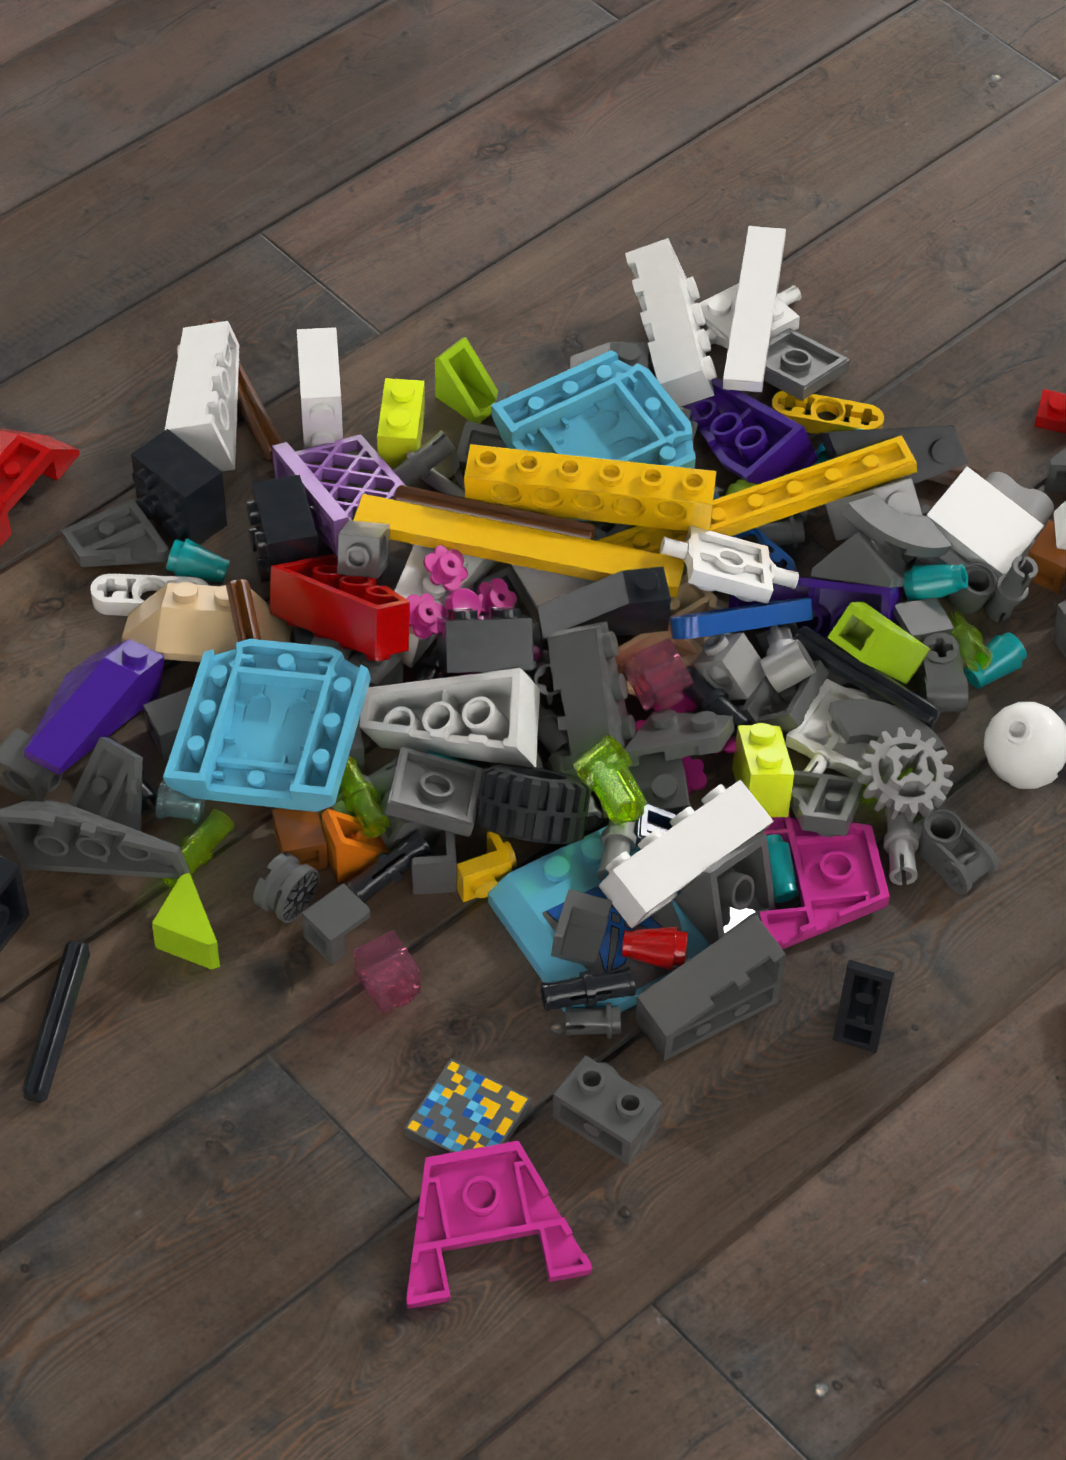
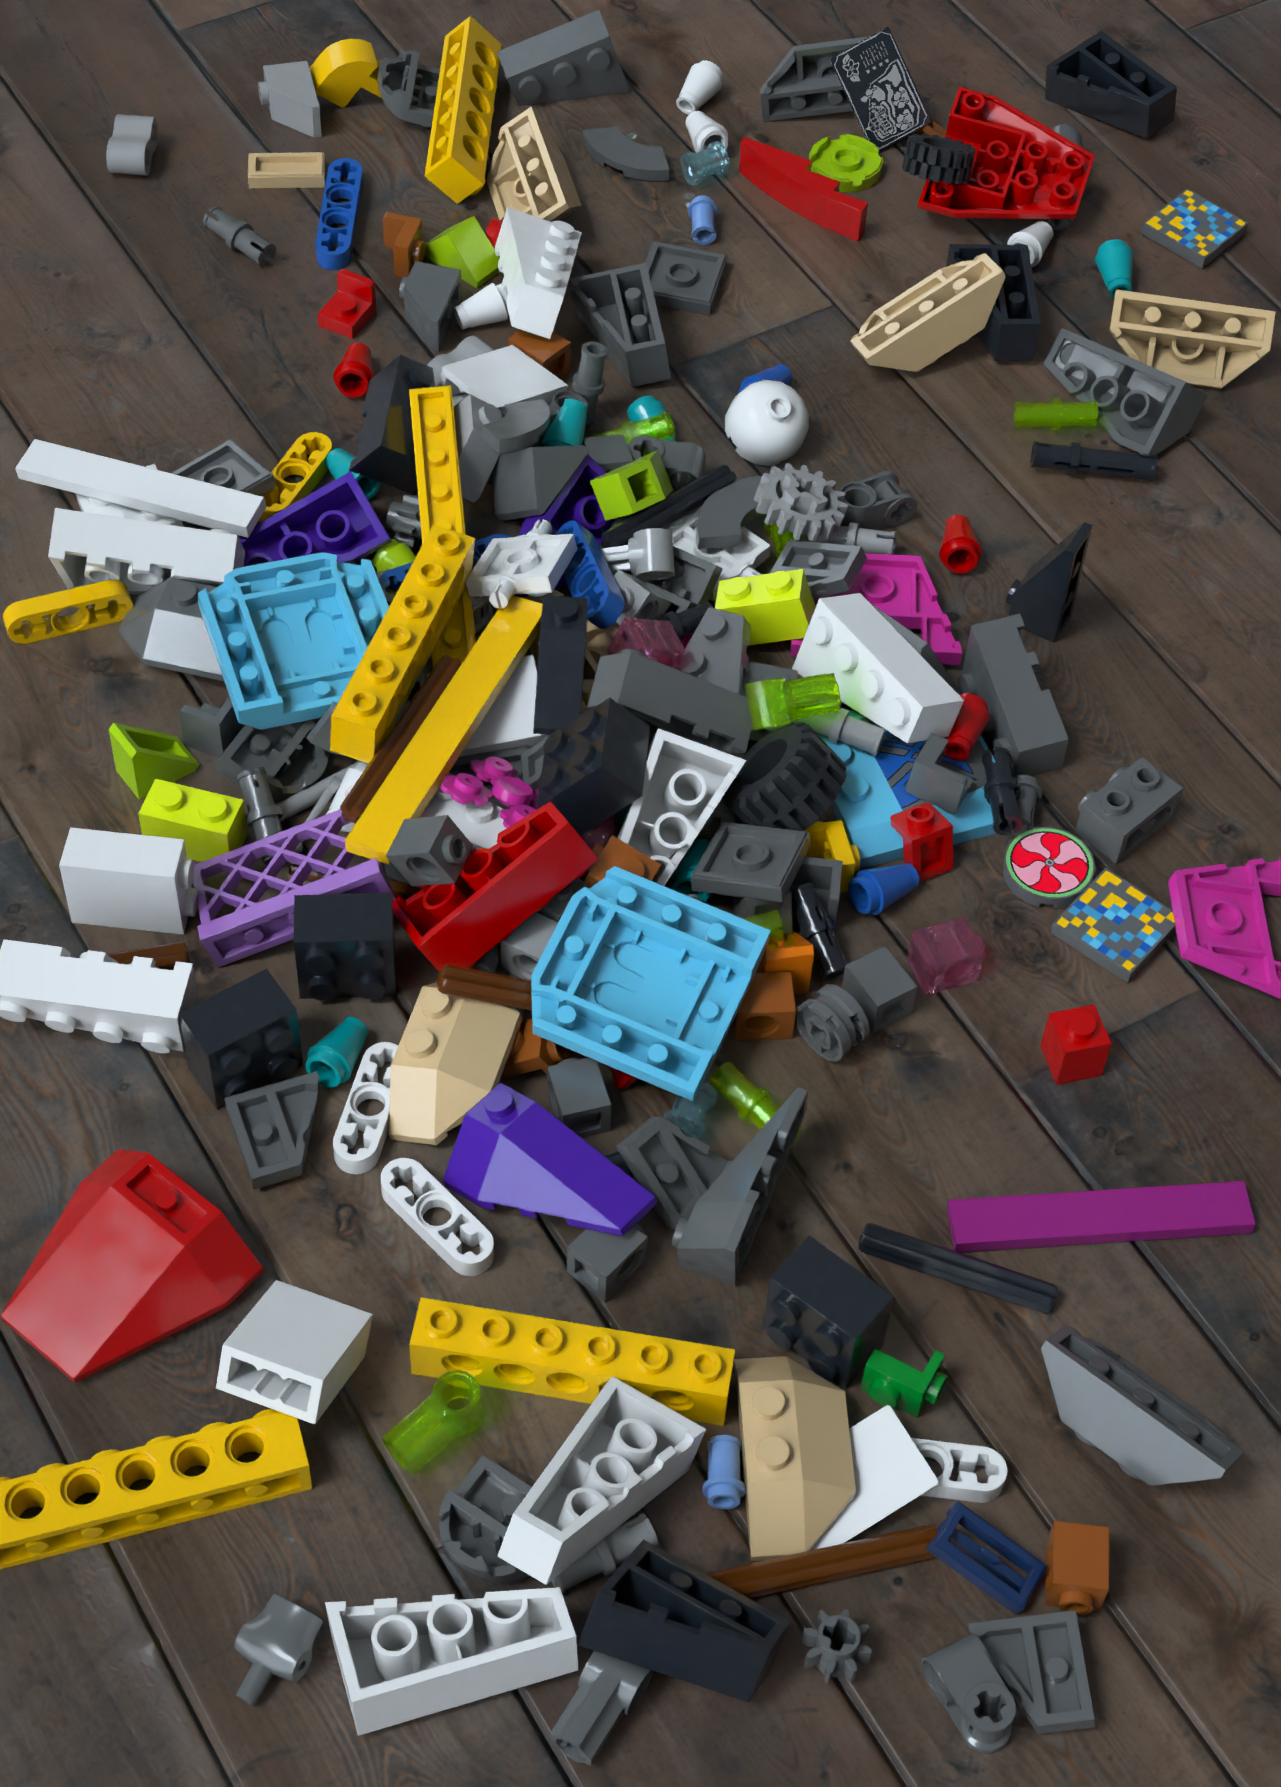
camera: 80 degrees left, 0 degrees up
(50, 673) = (443, 1237): none -> white beam
(129, 1131) = (1099, 1216): none -> magenta tile
(184, 927) = (856, 1123): lime slope -> none
(303, 1082) = (1075, 1044): none -> red brick
(389, 690) = (623, 856): none -> dark orange bracket
(460, 916) = (880, 887): none -> blue cone
(511, 935) = (925, 839): none -> red bracket
(525, 1052) = (1047, 866): none -> tile
(610, 301) = (51, 604): none -> yellow beam
(927, 933) = (959, 545): none -> red cone
(980, 428) = (354, 371): none -> red cone

